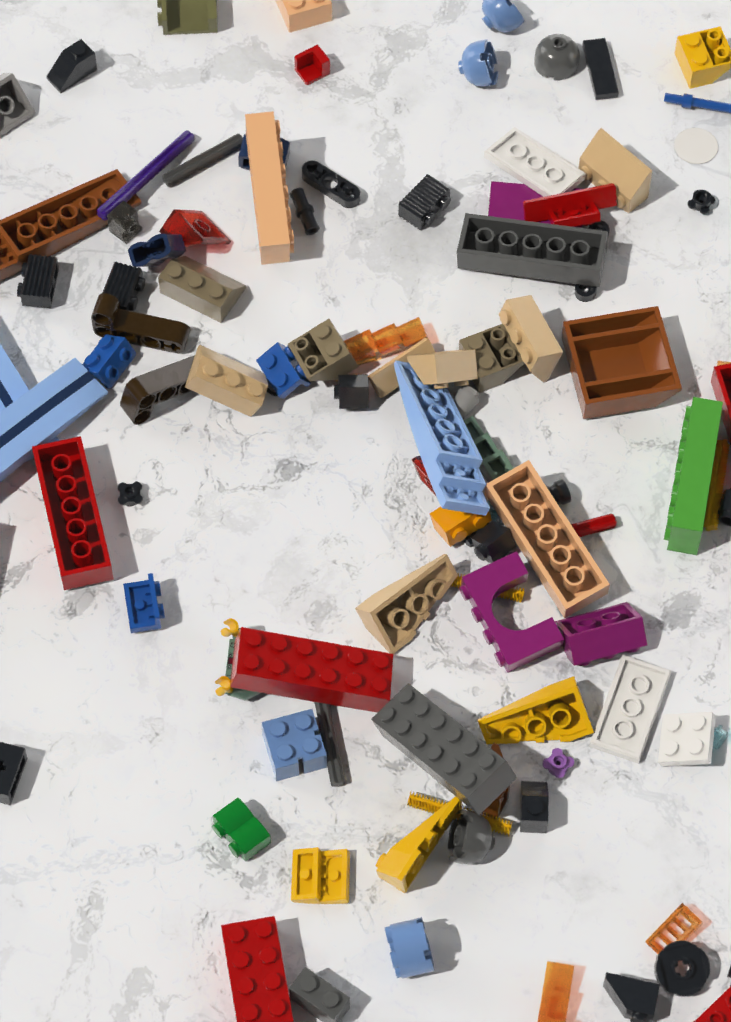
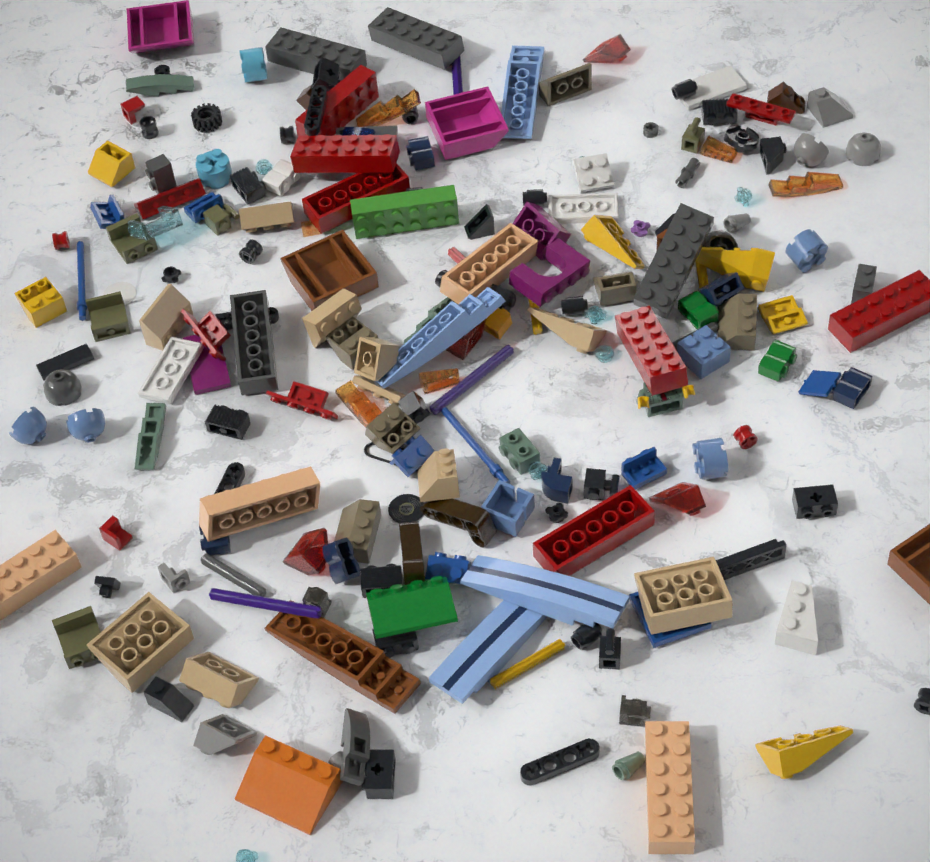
camera: 105 degrees left, 10 degrees down
(57, 296) = (411, 607): none -> green slope
(75, 114) = (217, 679): none -> tan slope
(81, 623) = (682, 498): none -> clear red slope
(114, 674) = (711, 458): none -> medium blue brick
(136, 737) = (745, 437): none -> red wheel
(145, 546) = (596, 484): none -> black brick
(149, 52) = (141, 641): none -> tan slope
(152, 436) = (505, 511): none -> medium blue piece
(154, 900) = (851, 387): none -> dark blue brick
(170, 500) = (554, 485): none -> dark blue brick
(178, 862) = (820, 383): none -> blue piece
(199, 493) = (535, 470): none -> clear light blue plate
(220, 342) = (405, 508): none -> black sticker
(224, 452) = (495, 469): none -> blue bar
(225, 100) = (172, 579): none -> light grey bracket
(236, 482) = (518, 450): none -> sand green brick
(245, 43) = (106, 585): none -> black tile
(326, 812) = (738, 321): none -> dark tan slope
(351, 640) = (604, 353): none -> clear light blue plate
(371, 770) = (698, 310): none -> green brick
(378, 474) = (471, 379): none -> dark purple axle
(390, 426) = (437, 380): none -> clear orange slope
(390, 808) = (722, 288): none -> dark blue brick
(421, 285) = (305, 397): none -> red bracket
(422, 641) = (595, 314): none -> clear light blue plate
(440, 126) = (150, 436): none -> sand green slope
(446, 625) = (574, 305): none -> black brick
(459, 683) = (615, 288): none -> dark tan slope
(515, 889) = (735, 222): none -> light grey cone
(561, 920) = (743, 196): none -> clear light blue plate
(643, 568) = (481, 224): none -> black slope
(643, 869) = (687, 172): none -> dark grey pin
(653, 124) = (108, 316): none -> olive panel
(669, 648) = (535, 196): none -> black brick
(703, 291) = (249, 253): none -> black wheel
(709, 902) = (693, 137): none -> olive brick

